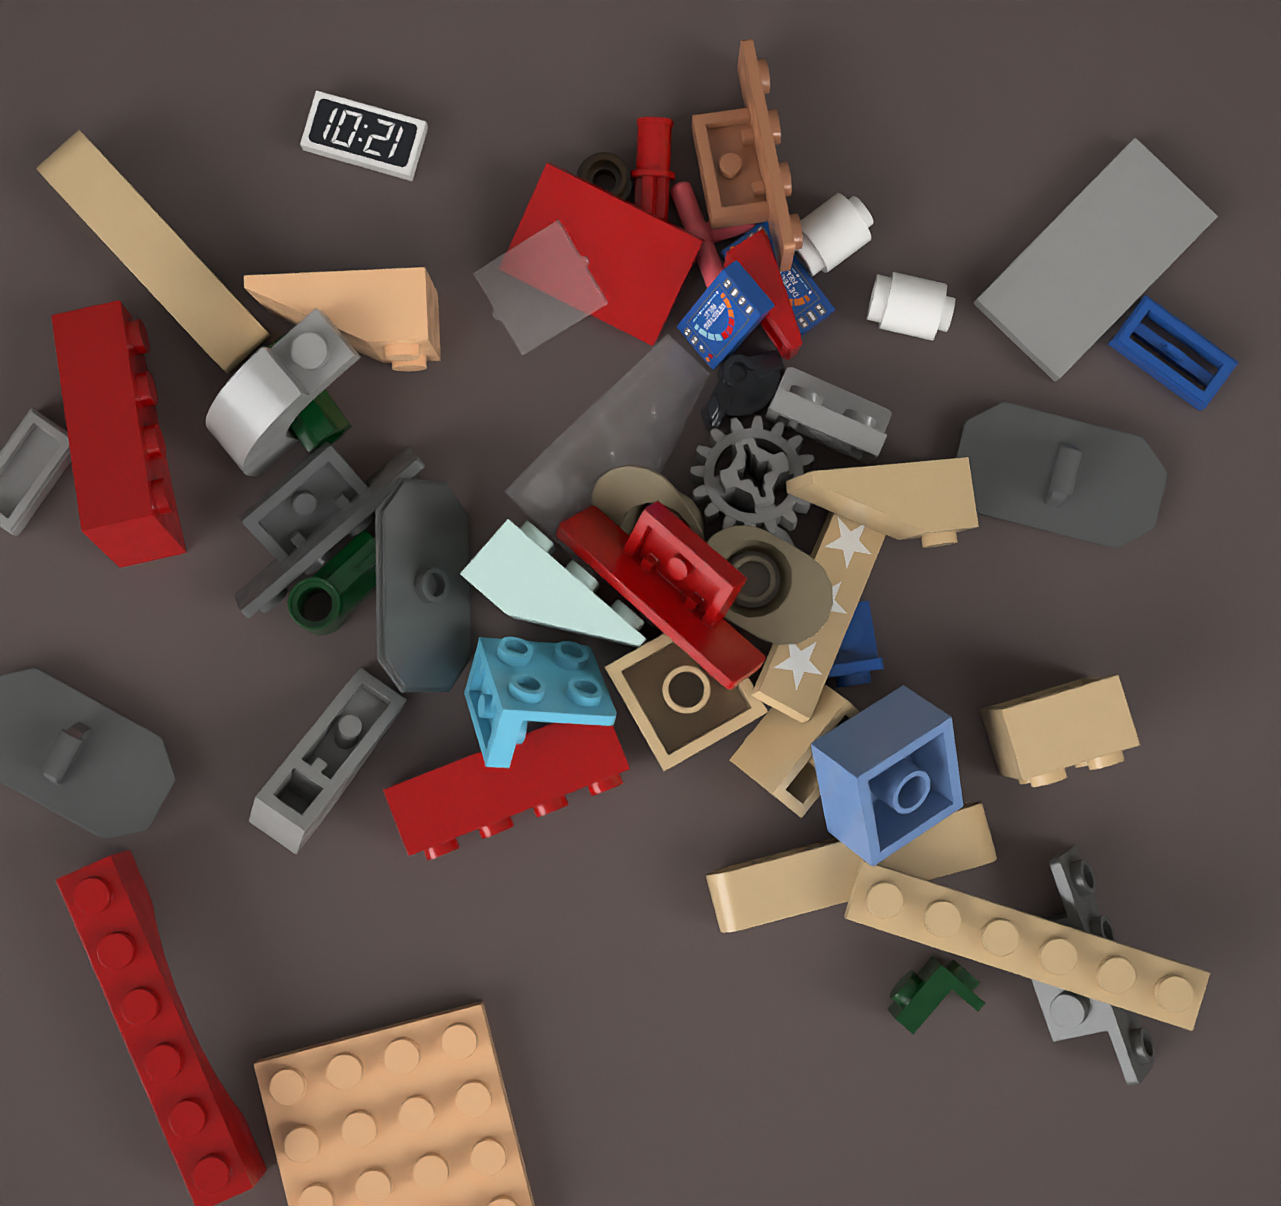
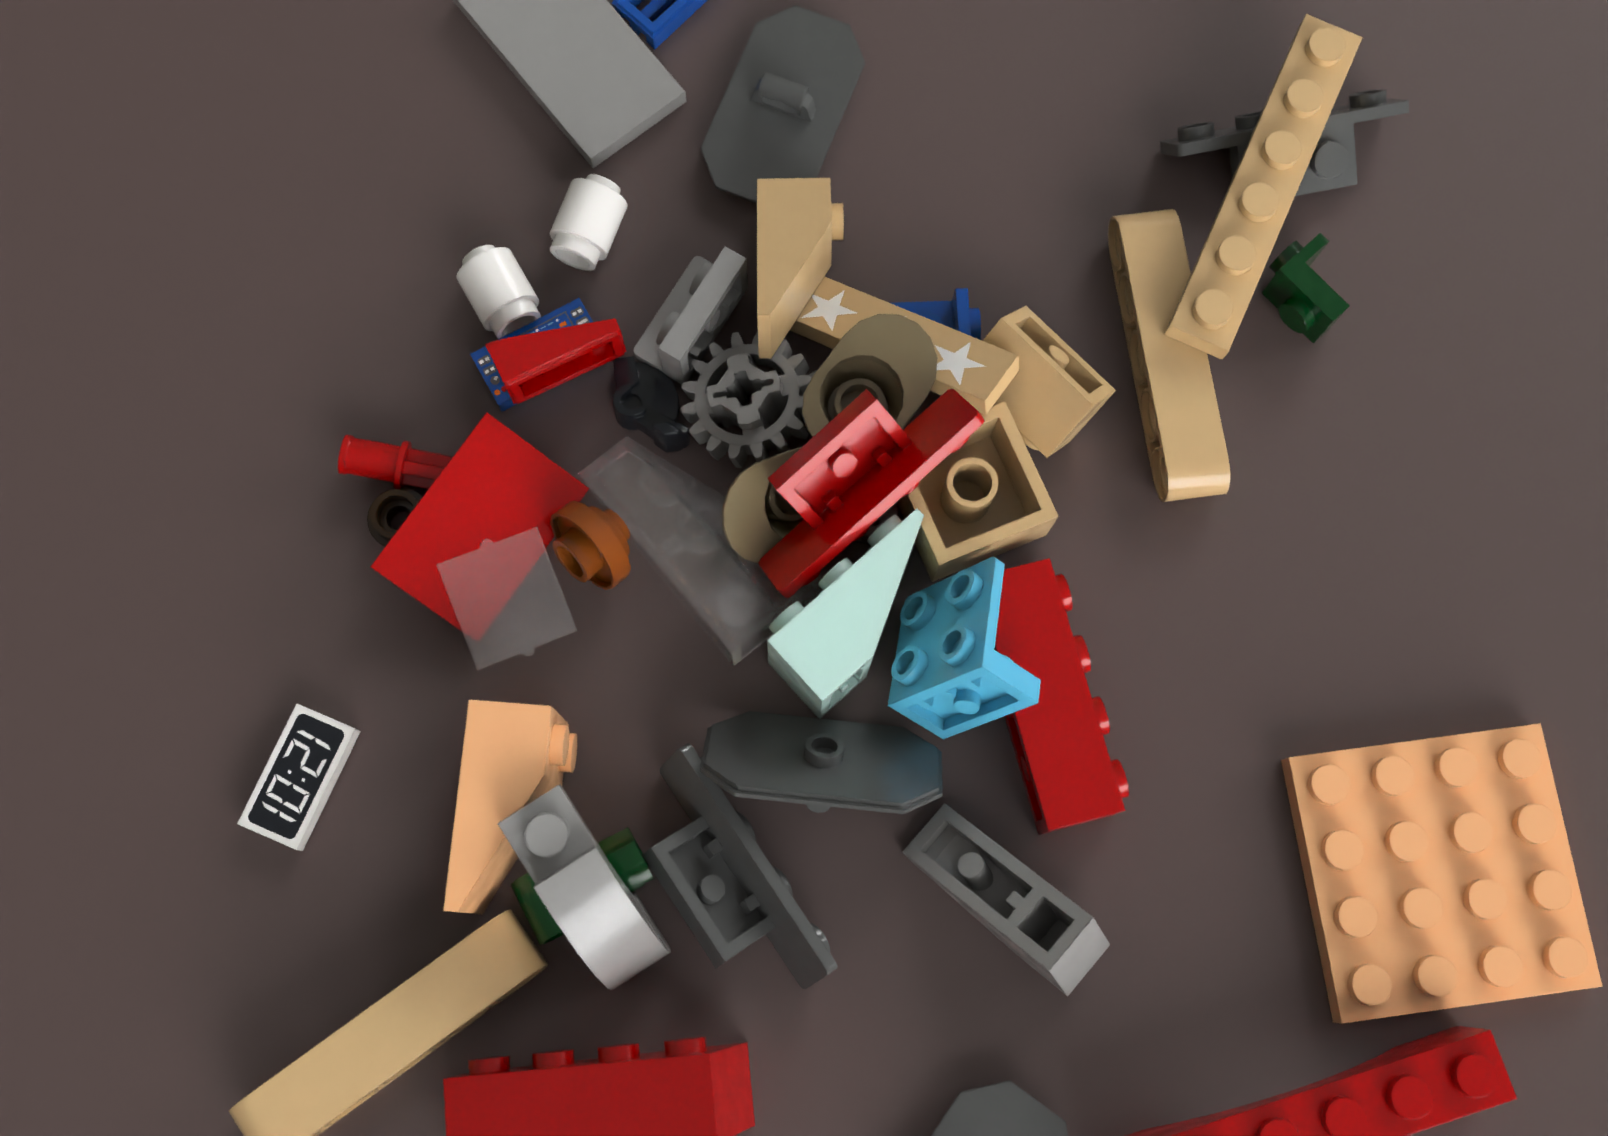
camera: 85 degrees left, 10 degrees down
(346, 578) = (804, 853): dark green piece -> none
(596, 355) = (591, 544): none -> dark orange plate
(694, 222) = (473, 409): coral piece -> none
(725, 315) = (570, 399): blue tile -> none
(741, 163) = (404, 363): nougat bracket -> none
(888, 774) = (1081, 291): medium blue brick -> none
(1060, 728) = (1047, 125): tan brick -> none

